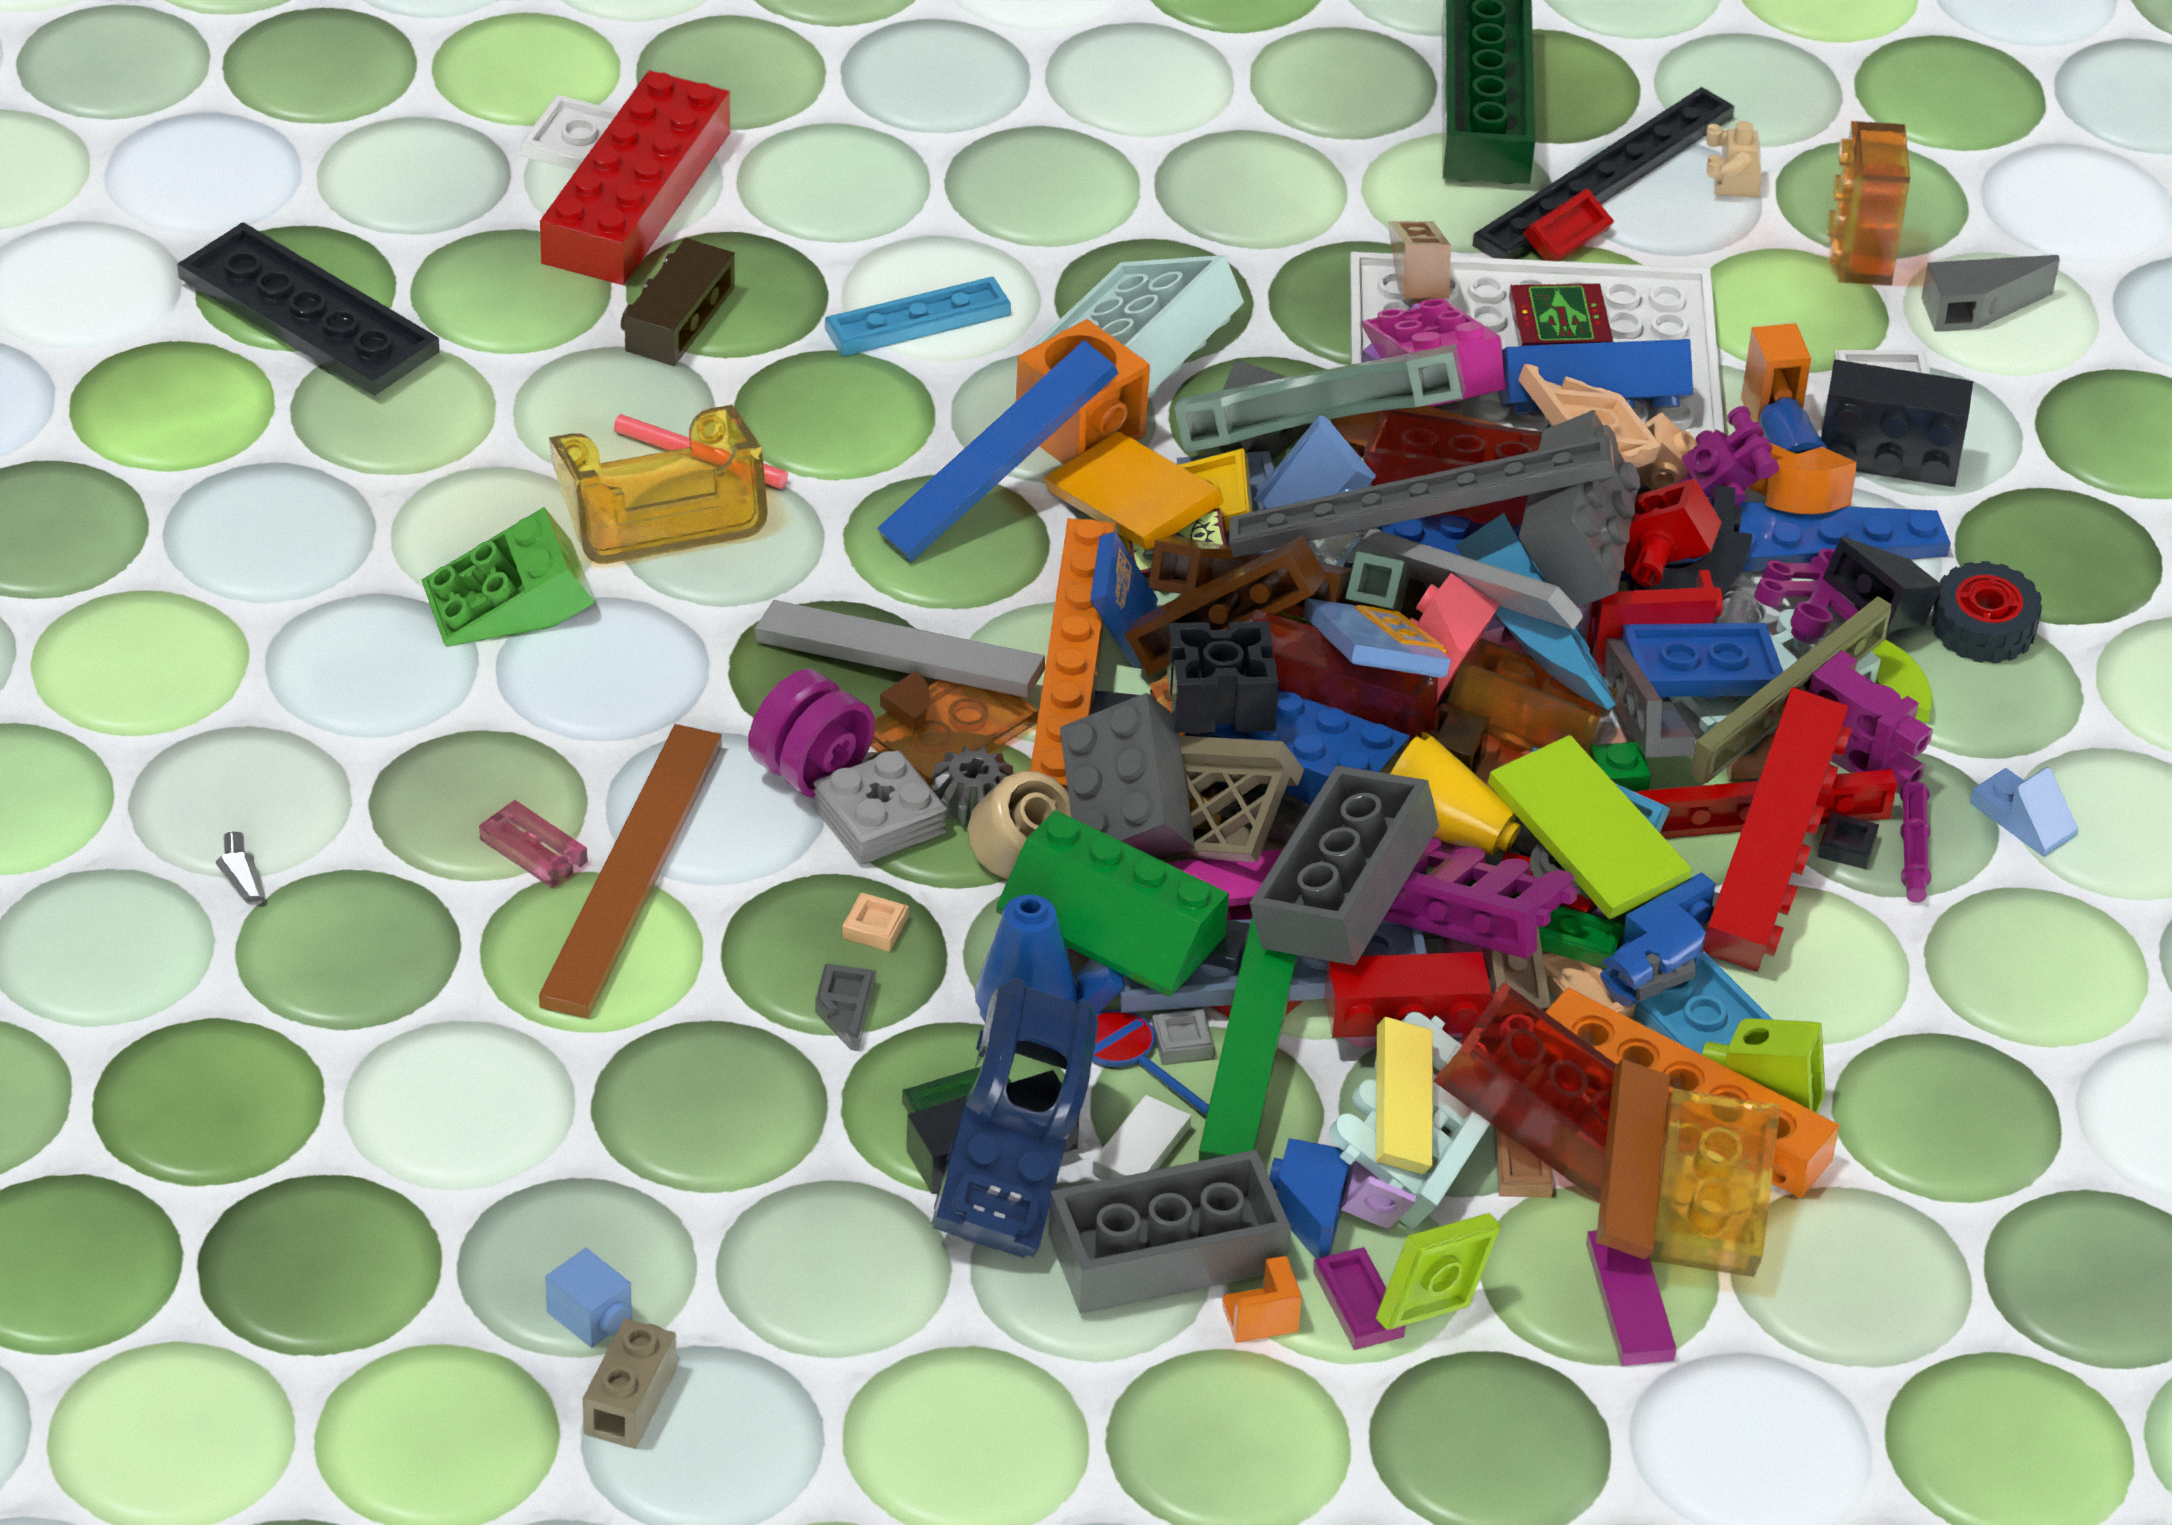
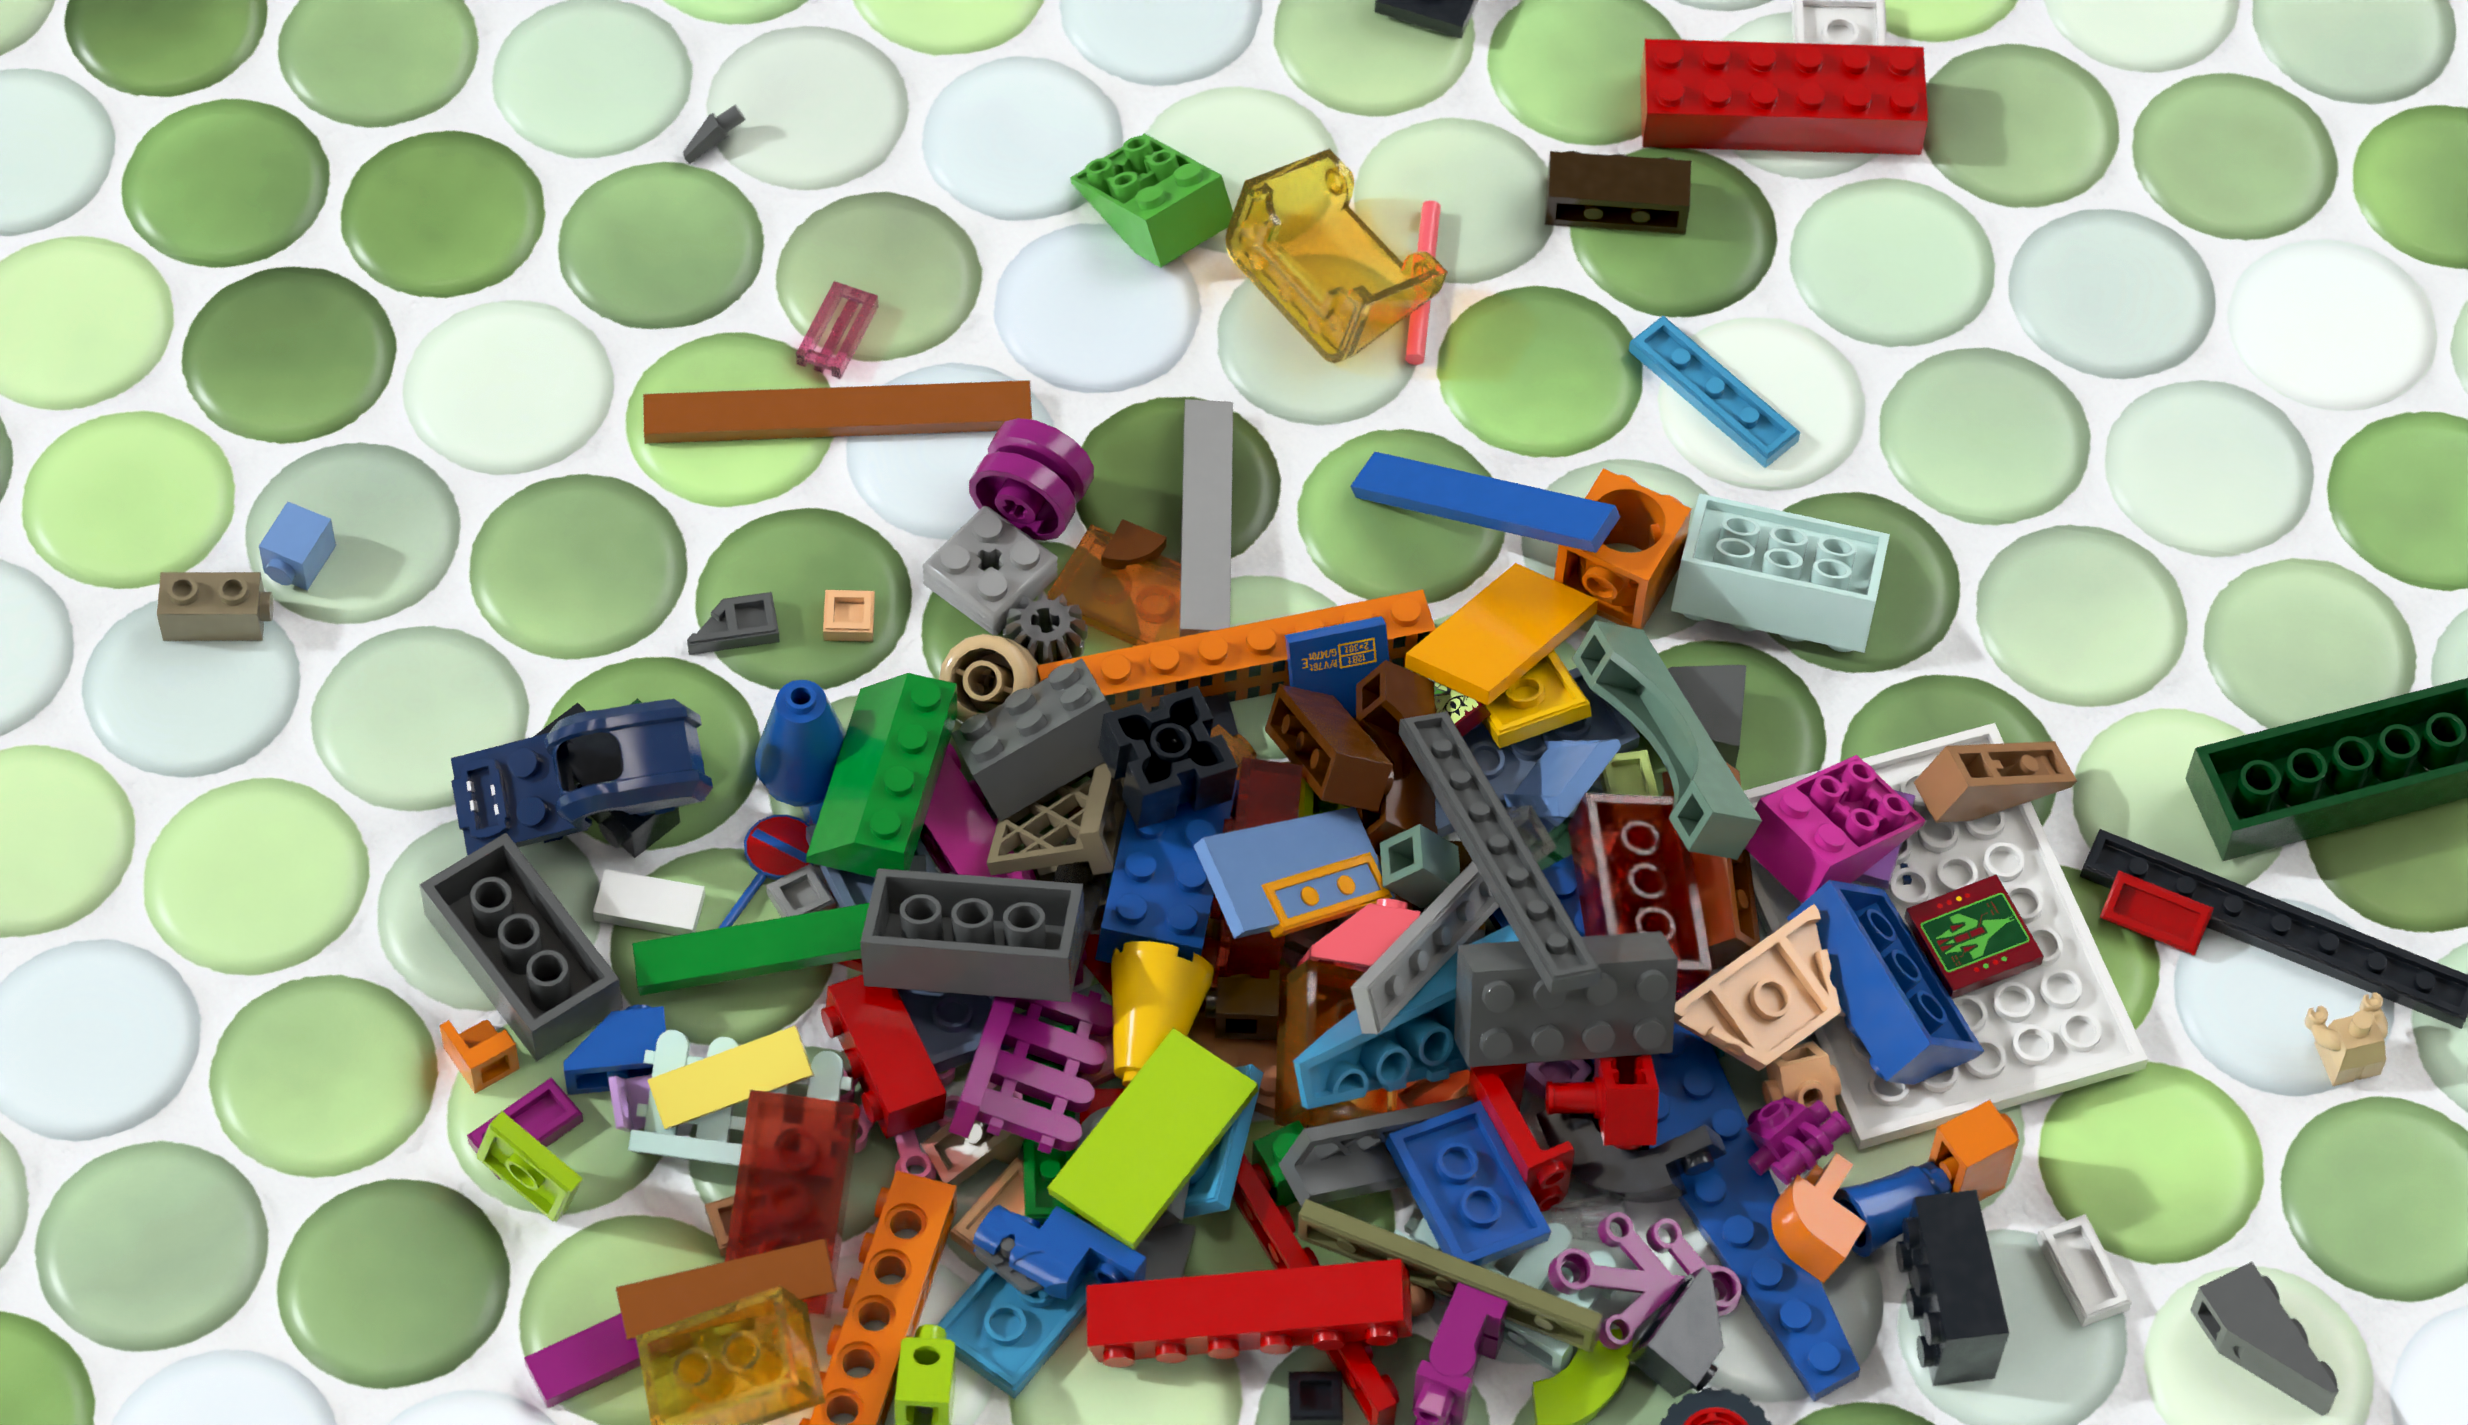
camera: 70 degrees right, 15 degrees up
(1869, 203) = (2299, 1173): clear orange brick -> none

